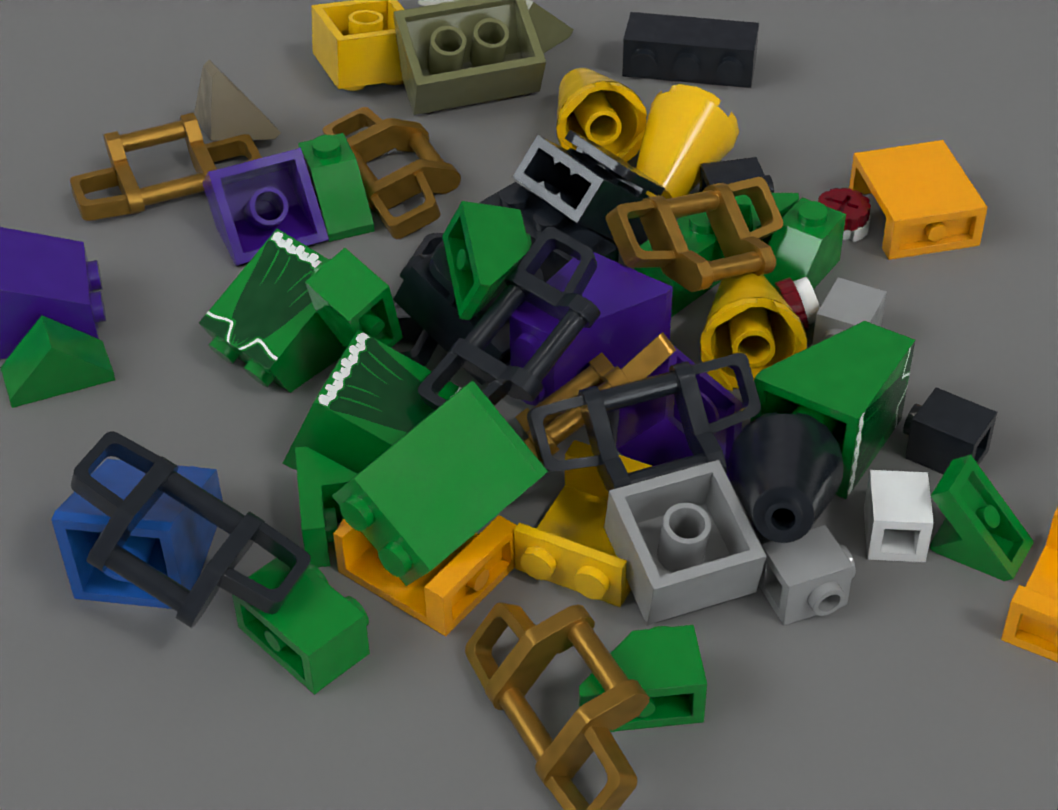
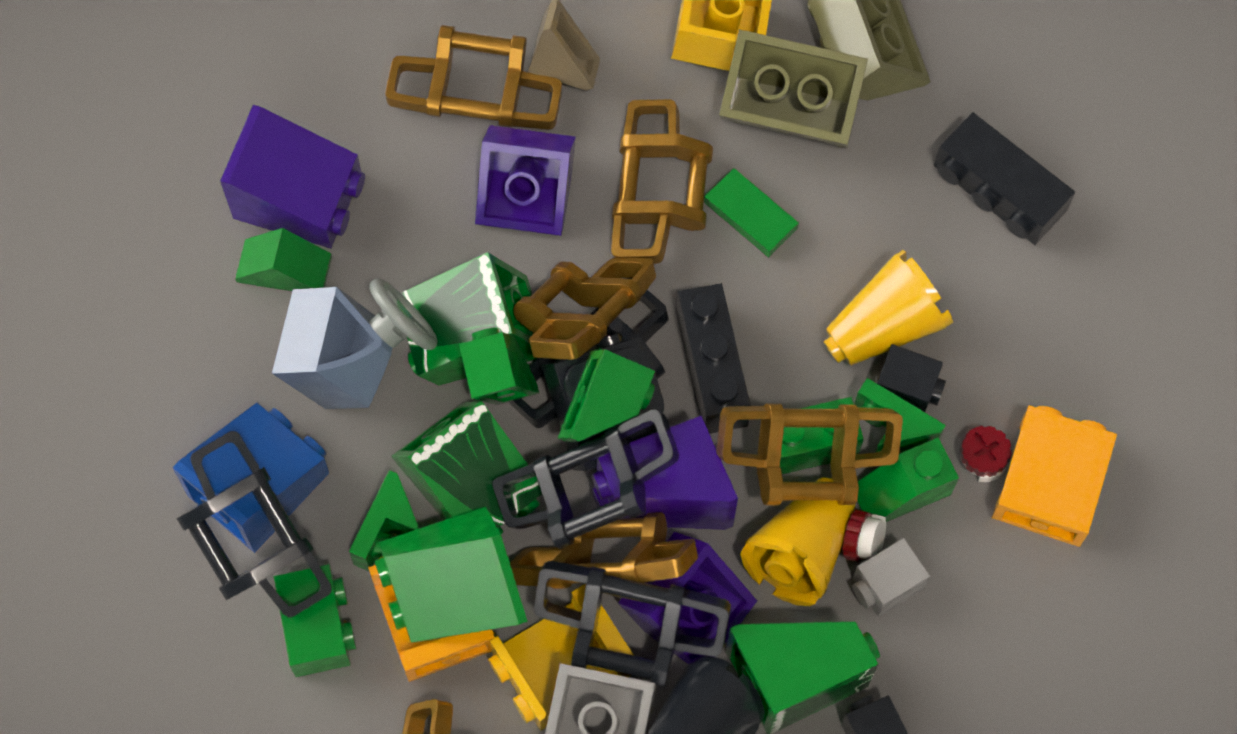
camera: 30 degrees right, 25 degrees up
(177, 368) = (339, 348): none -> sand blue piece
(337, 186) = (592, 188): green slope -> none
(392, 253) = (573, 334): none -> pearl gold bar
(486, 154) = (751, 212): none -> green tile
(585, 181) = (774, 330): black brick -> none
(600, 112) = (853, 225): yellow cone -> none

